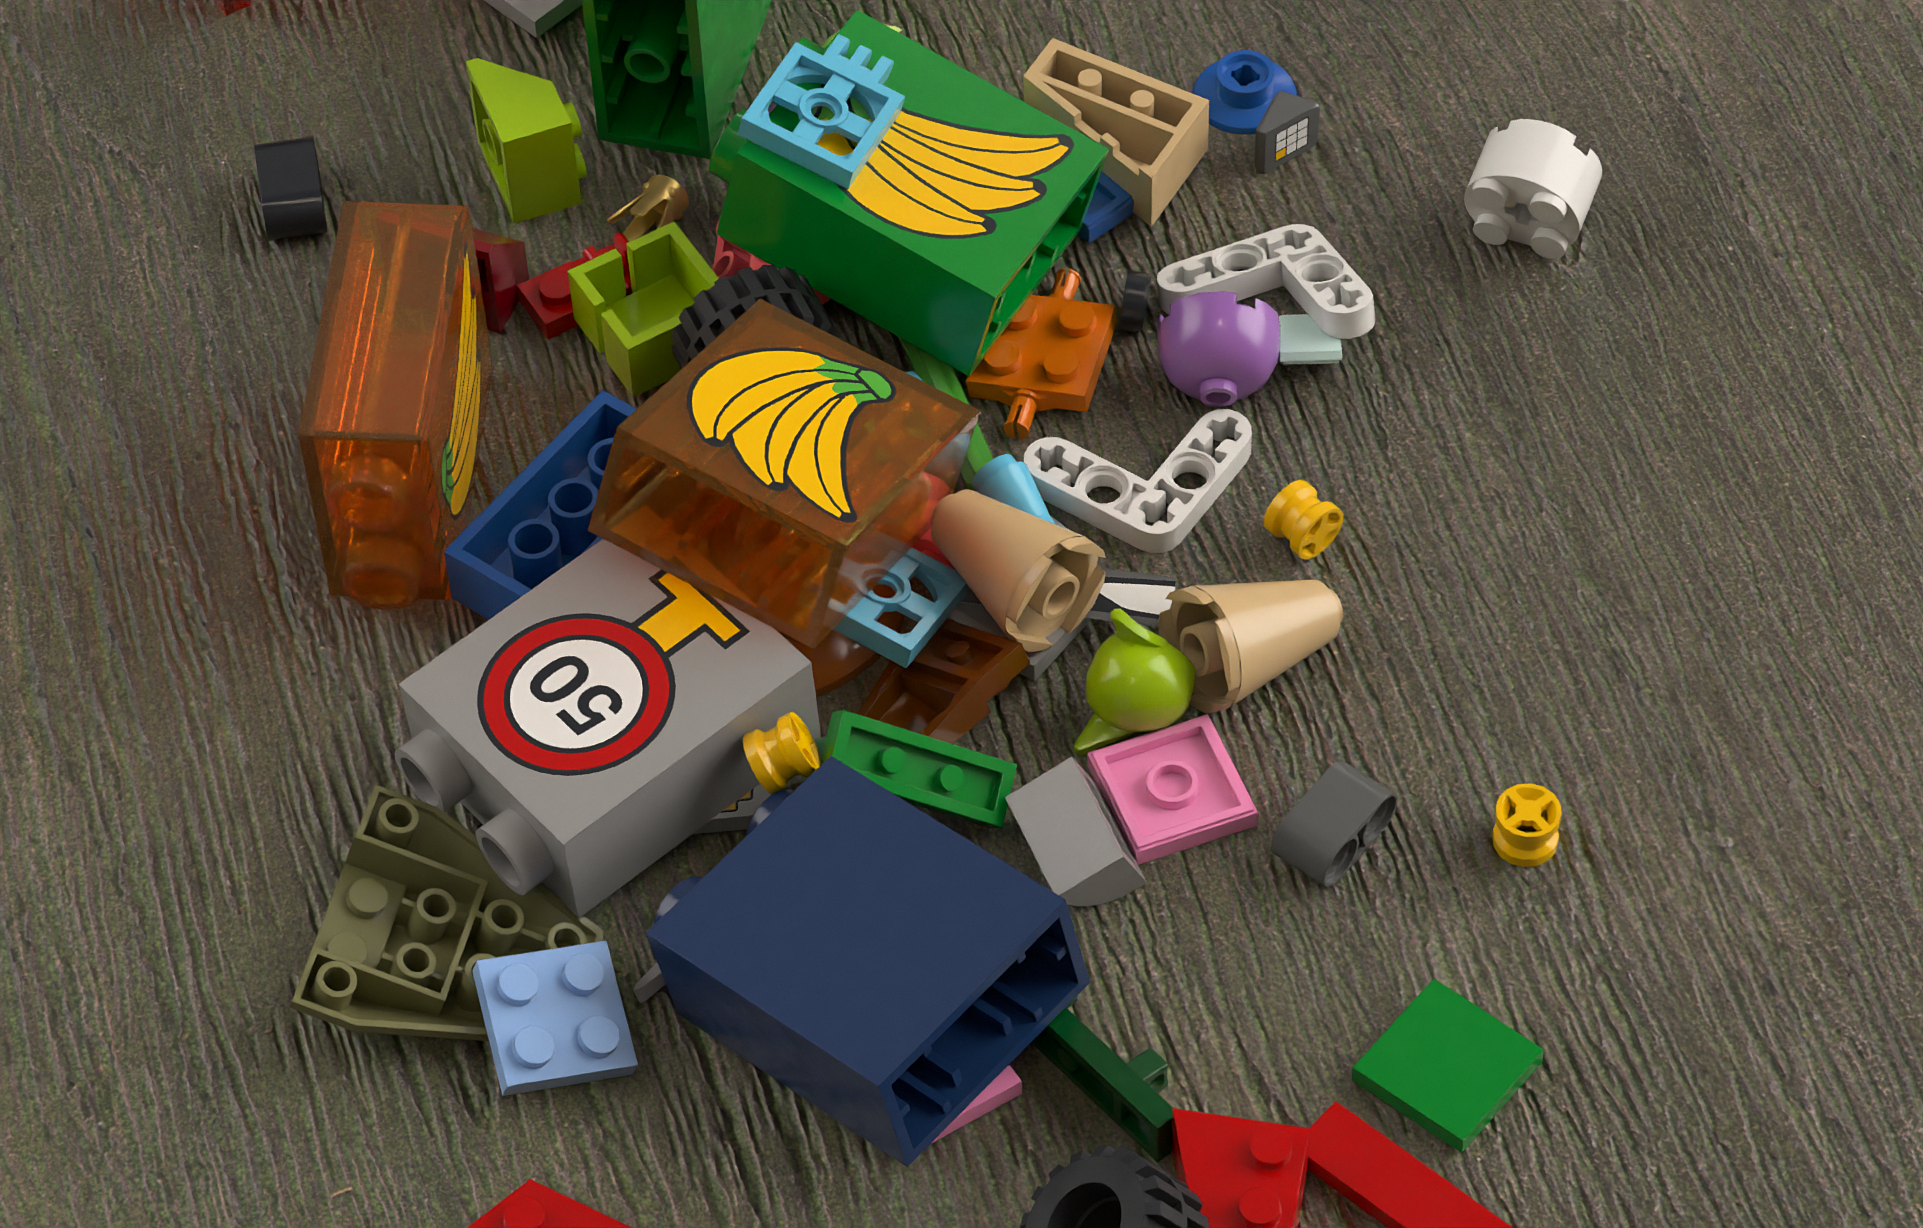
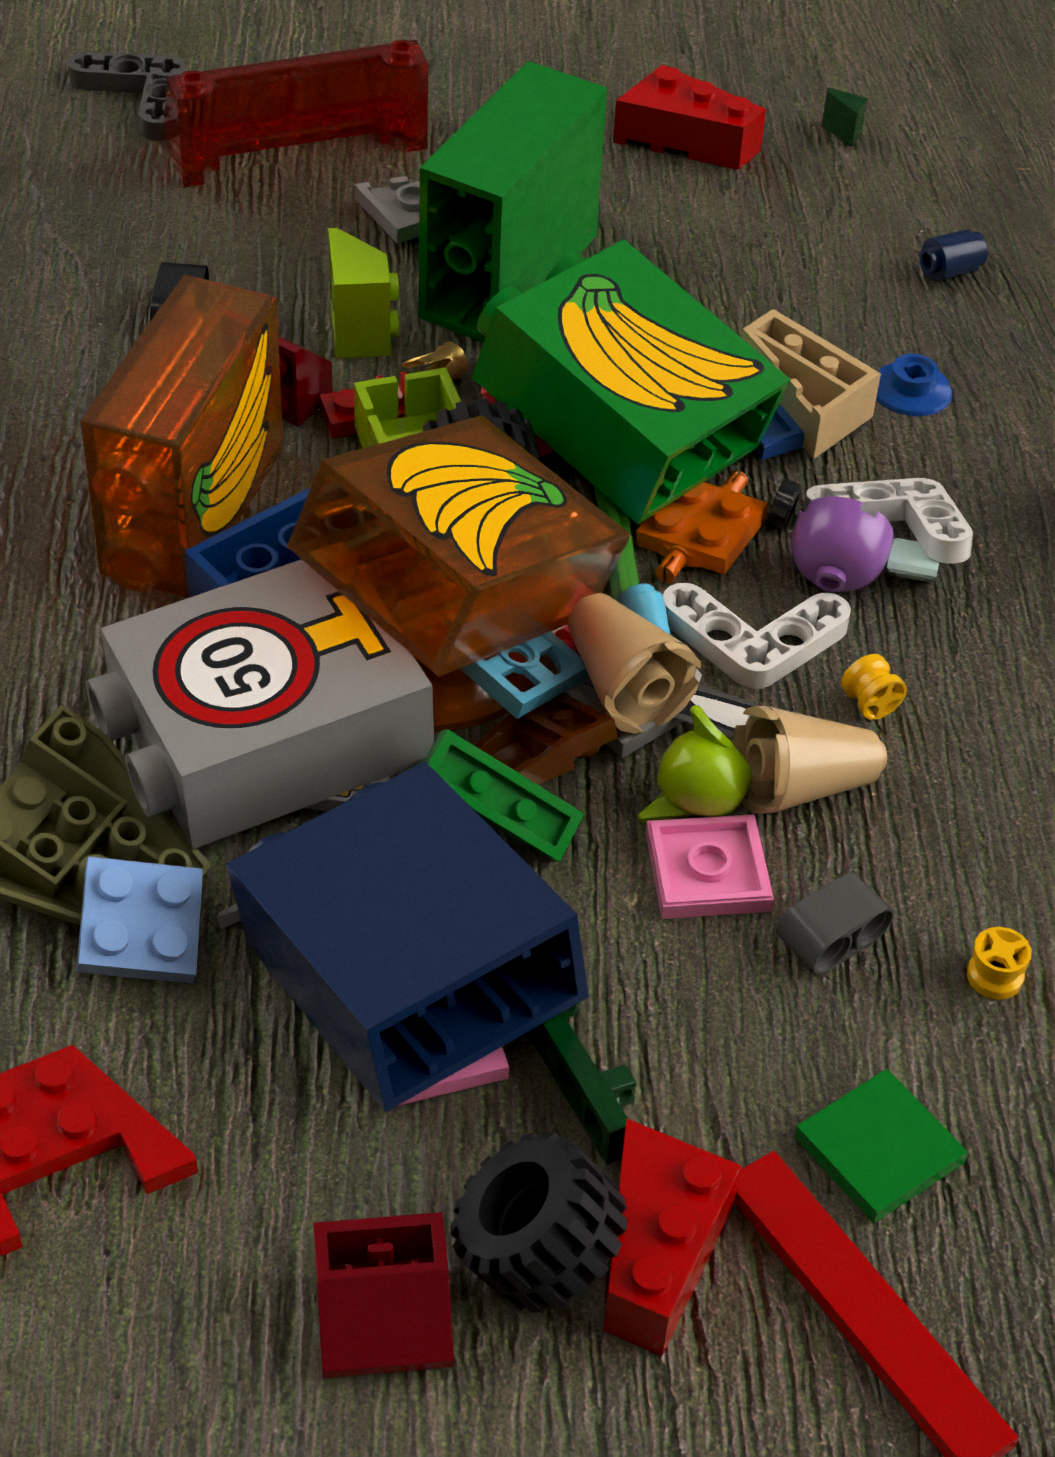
camera: 10 degrees right, 5 degrees down
(781, 752) = (387, 751): yellow wheel -> none
(842, 79) = (583, 277): medium azure piece -> none
(1075, 837) = (616, 883): light grey brick -> none
(1285, 130) = (935, 414): dark grey slope -> none

